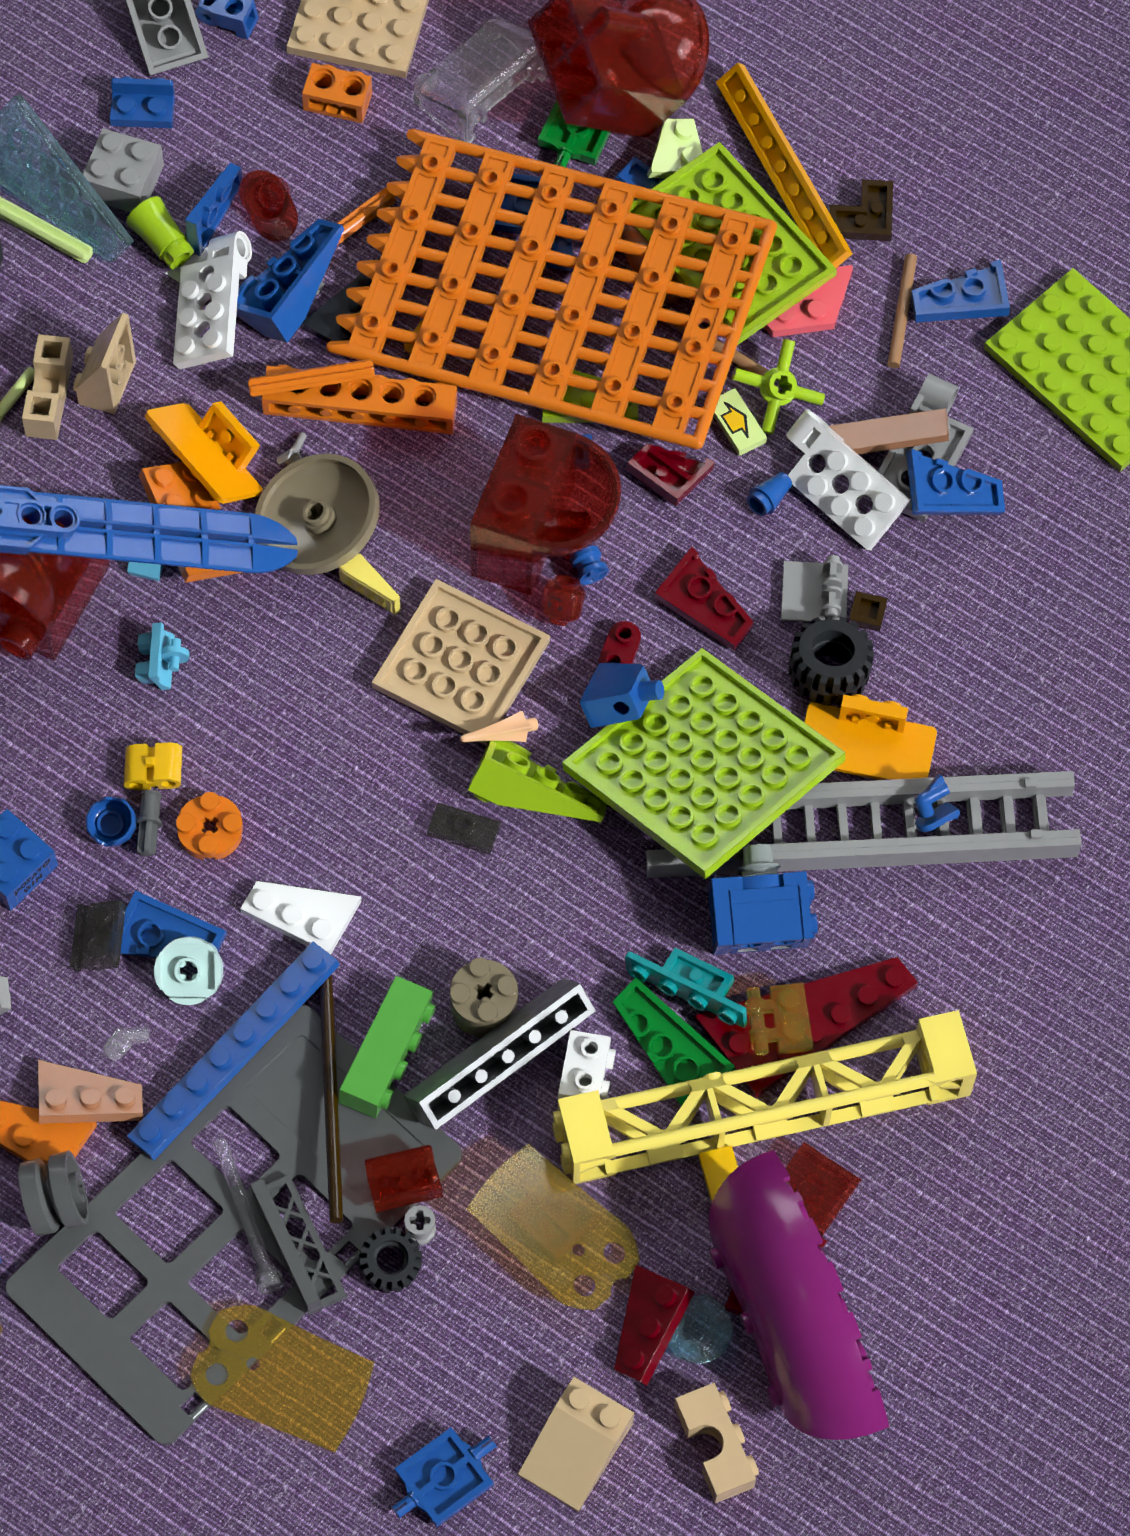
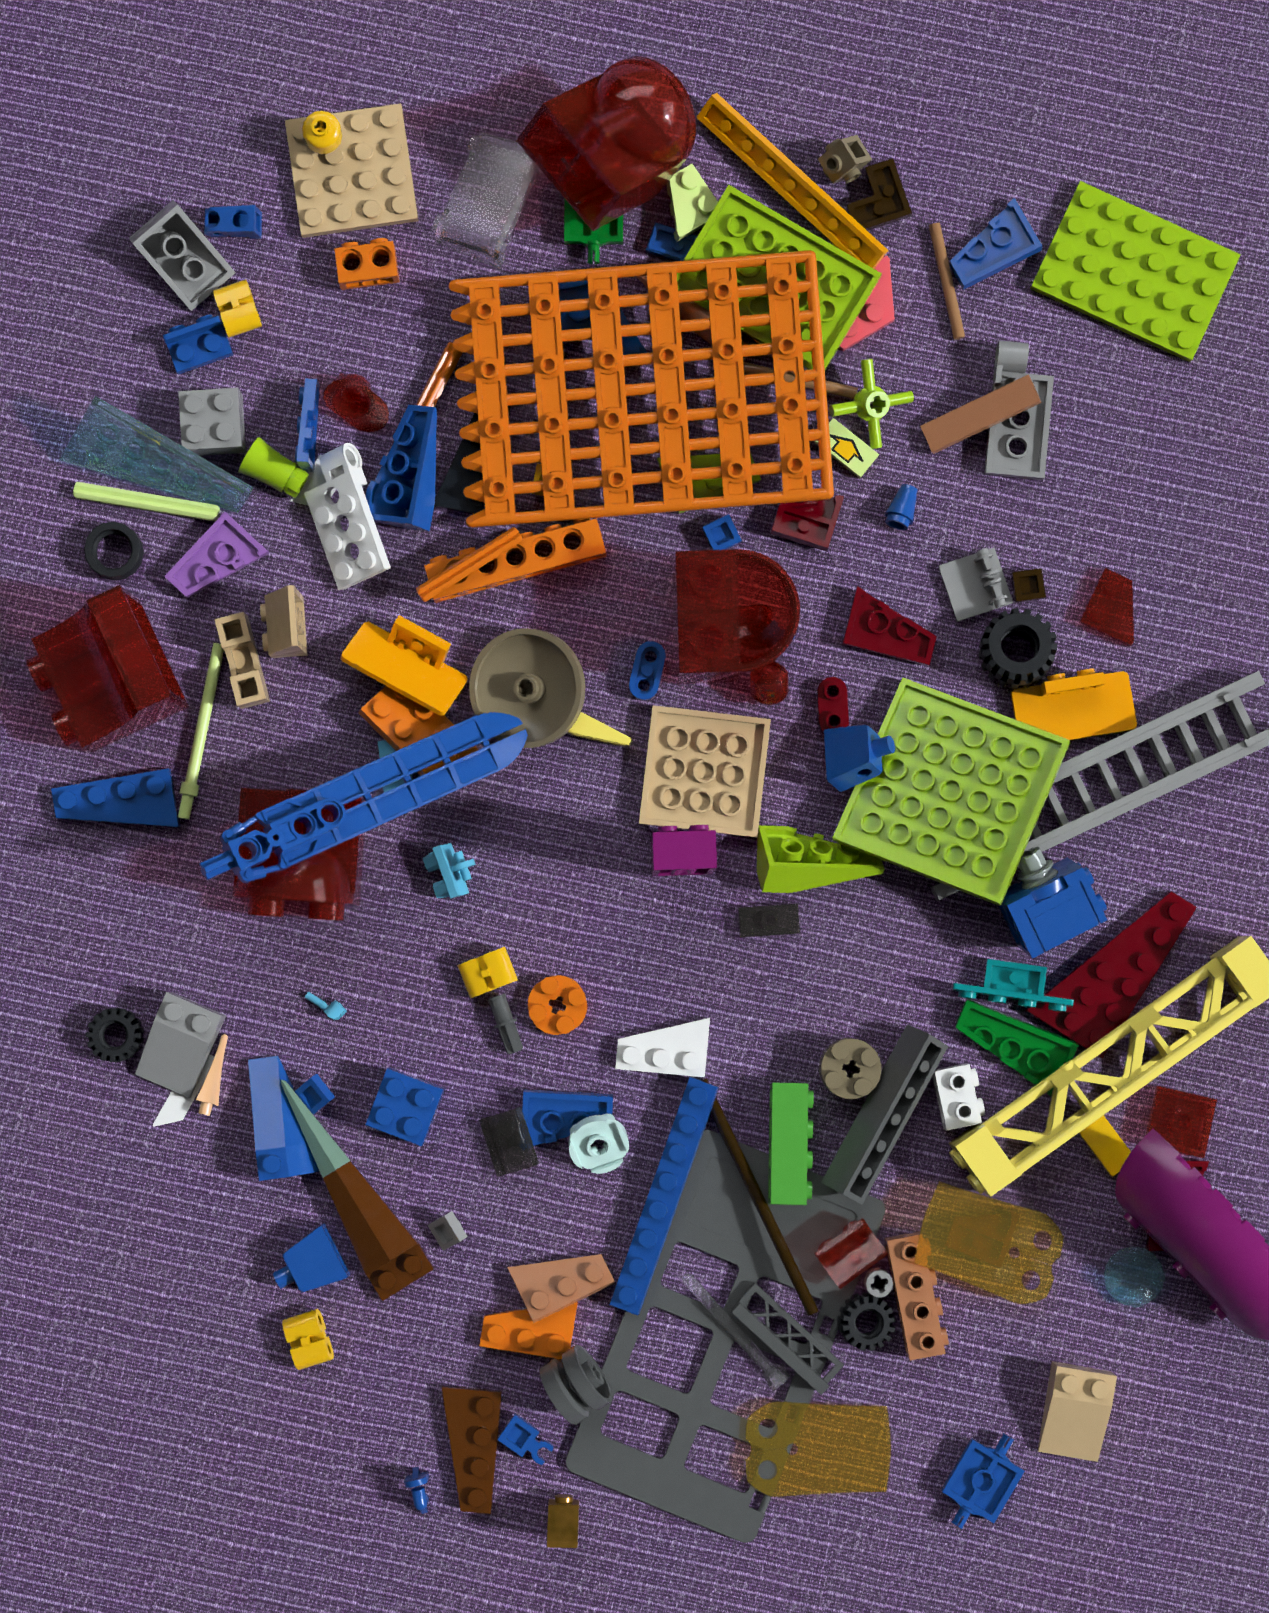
camera: 25 degrees left, 20 degrees up
(67, 290) = (214, 556): none -> medium lavender wing
(111, 821) = (475, 1038): blue hair -> none
(123, 1039) = (567, 1221): clear arm -> none
(195, 86) = (237, 308): none -> yellow piece
(294, 453) = (481, 638): light grey hand -> none
(398, 694) = (683, 851): none -> magenta brick
(443, 549) = (647, 671): none -> blue plate
(452, 1259) = (915, 1299): none -> nougat brick
(510, 729) = (773, 818): light nougat piece -> none
(649, 1323) = (1095, 1288): dark red wing -> none
(706, 1413) = (1205, 1384): tan arch -> none
(789, 1015) = (1107, 985): clear yellow plate -> none
(817, 438) = (925, 443): white hinge -> none
(844, 163) = (844, 159): none -> dark tan brick
(930, 817) = (1157, 752): blue piece -> none
(945, 665) = (1111, 608): none -> clear red wing
(948, 490) = (1058, 445): blue wing -> none

